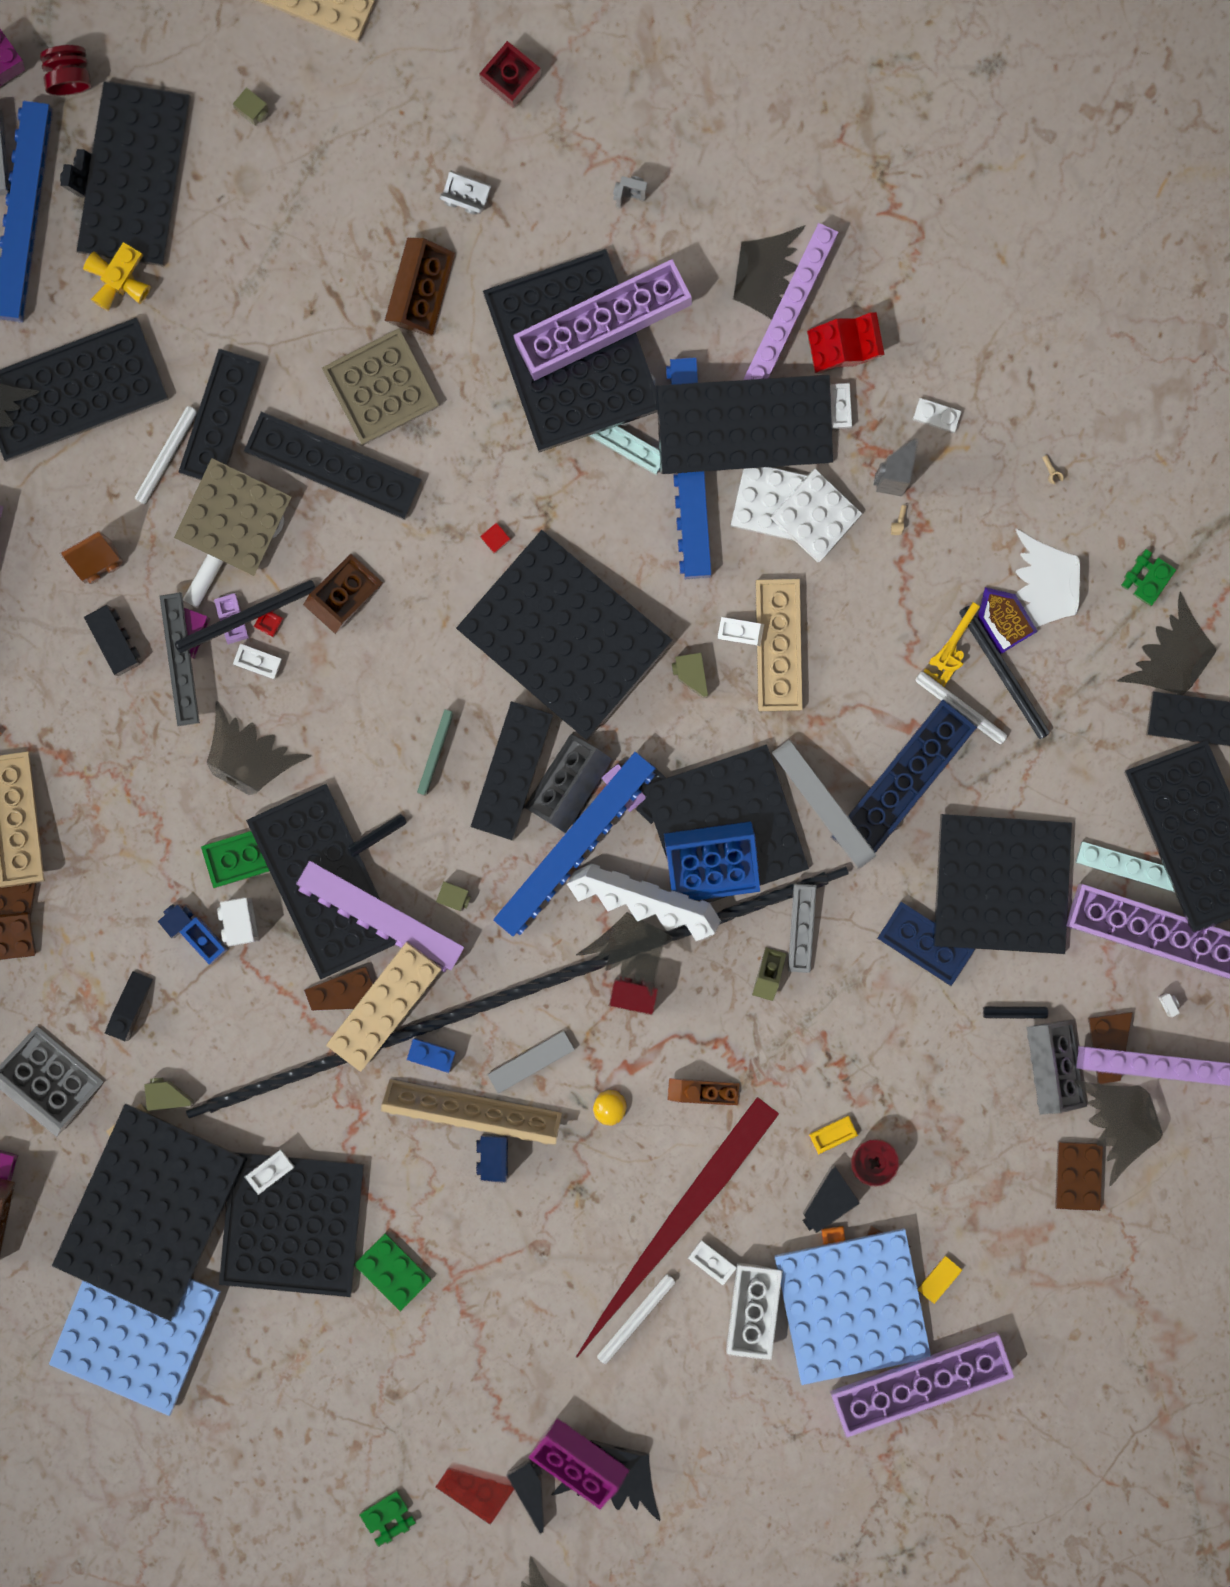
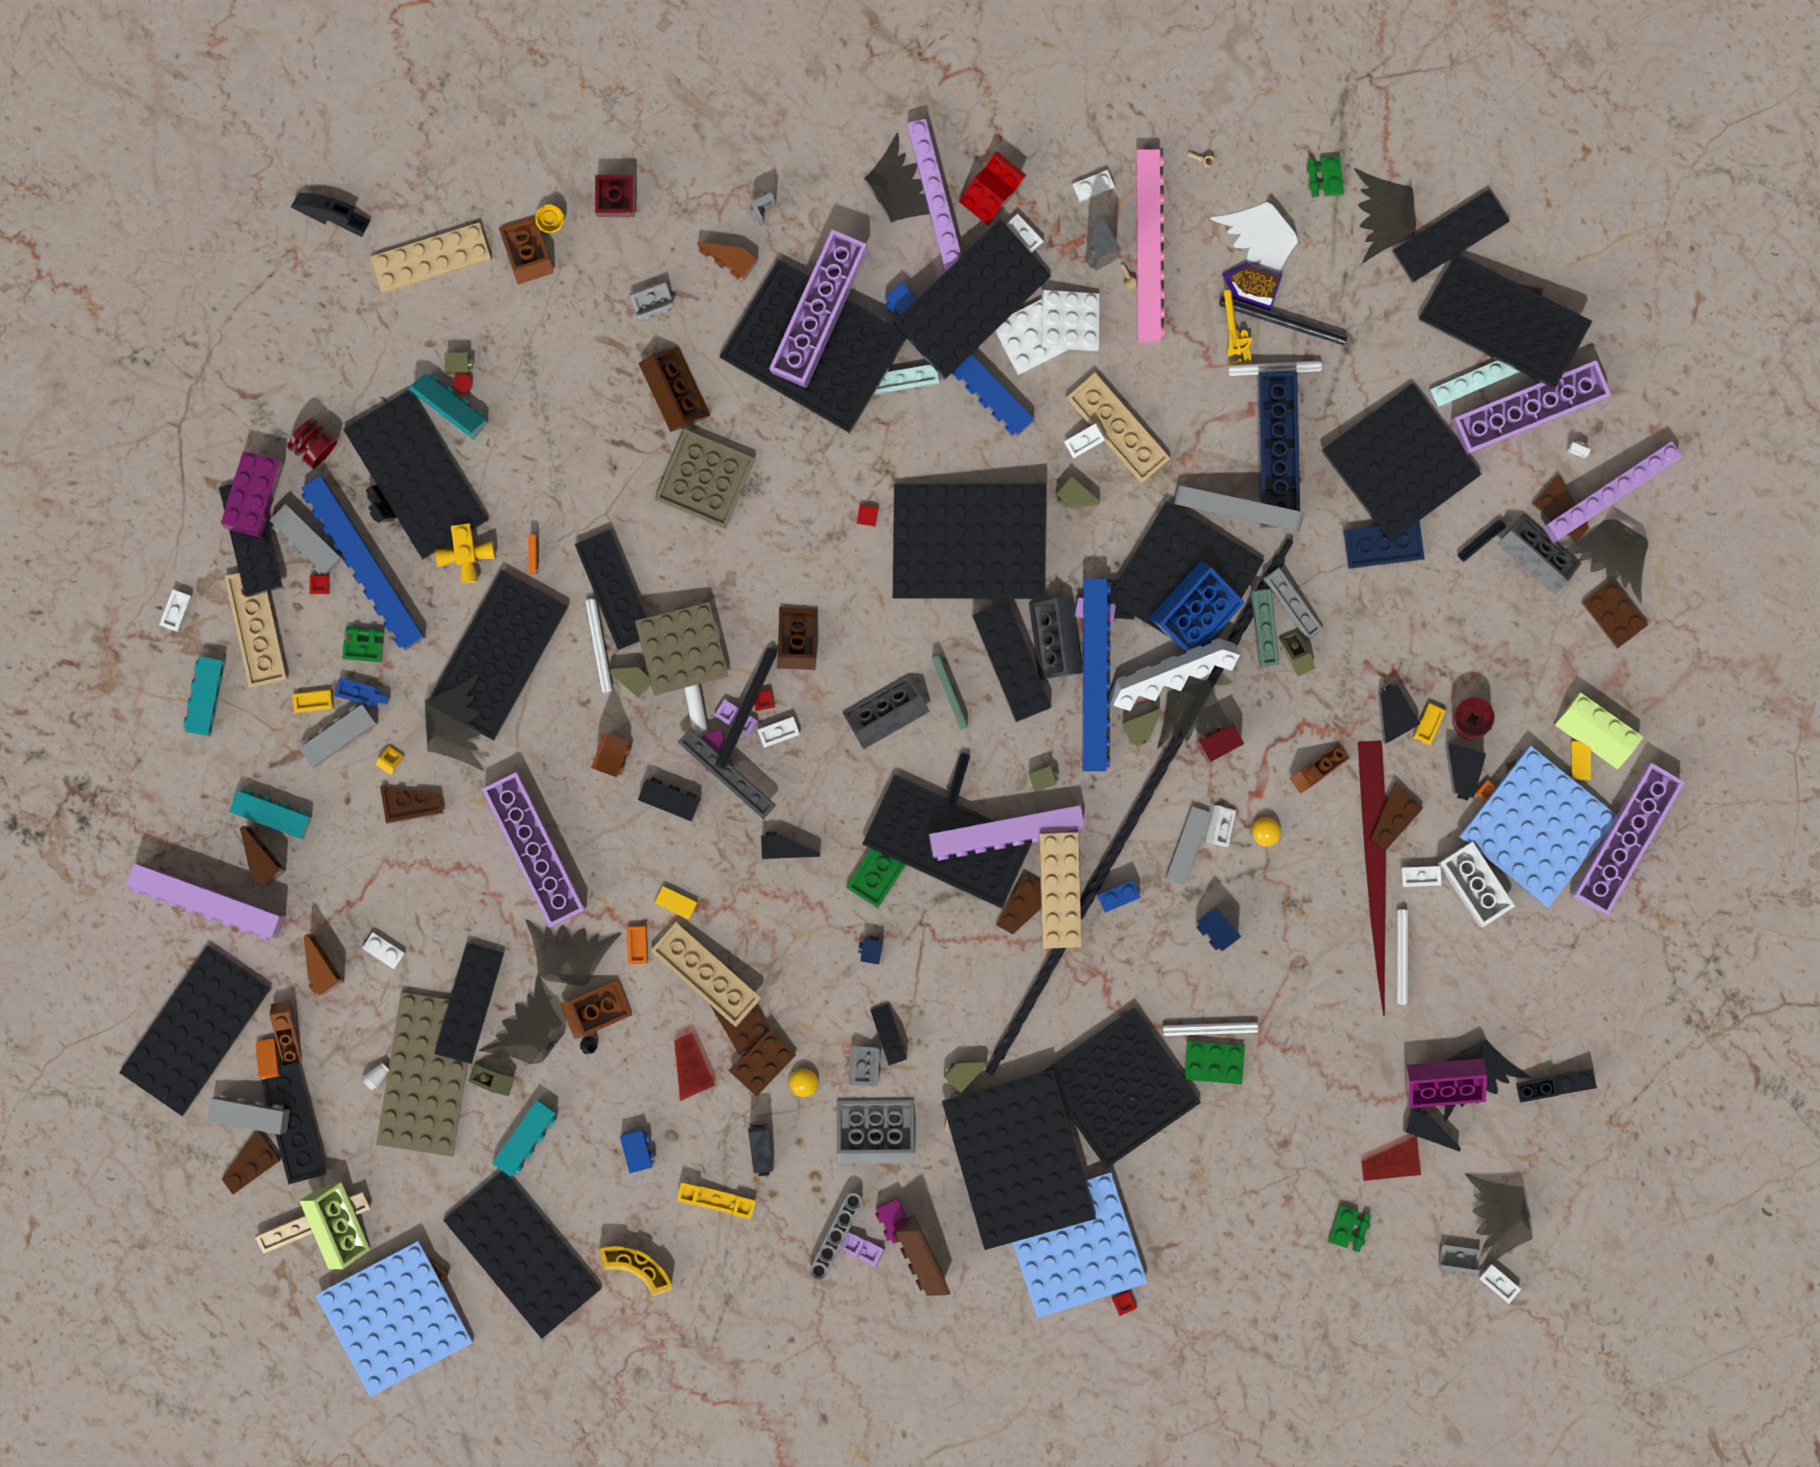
camera: 45 degrees left, 0 degrees up
(20, 985) = (803, 1082): none -> yellow hair
(43, 735) = (676, 902): none -> yellow tile
(85, 1015) = (864, 1065): none -> light grey bracket
(136, 1415) = (1124, 1303): none -> red tile
(169, 508) = (633, 679): none -> olive slope
(175, 327) = (532, 554): none -> orange tile
(175, 764) = (778, 847): none -> black slope
(204, 940) = (902, 948): blue brick -> none
(211, 137) = (449, 406): none -> teal slope
(238, 922) = (914, 915): white brick -> none
(241, 128) = (462, 383): none -> red tile
(244, 760) = (825, 805): clear smoke piece -> none
(269, 1171) = (1077, 1064): white plate -> none
(332, 465) = (717, 558): black plate -> none
(365, 722) = (886, 712): none -> flat silver slope
(393, 58) = (526, 250): none -> dark orange slope
(414, 1239) = (1216, 1028): none -> white axle
(437, 47) = (549, 218): none -> yellow hair
(471, 1112) = (1177, 910): tan plate -> none
(569, 216) = (732, 257): none -> dark orange slope
(574, 1069) = (1220, 826): none -> white slope
(576, 924) = (1141, 728): none -> olive slope
(675, 1547) = (1556, 1085): none -> black slope
(734, 1191) = (1395, 817): none -> reddish brown wing
(759, 928) = (1265, 627): none -> sand green tile
(810, 1100) = (1395, 713): none -> black slope
(940, 508) = (1149, 245): none -> bright pink brick
(977, 1266) = (1599, 730): none -> yellowish green slope

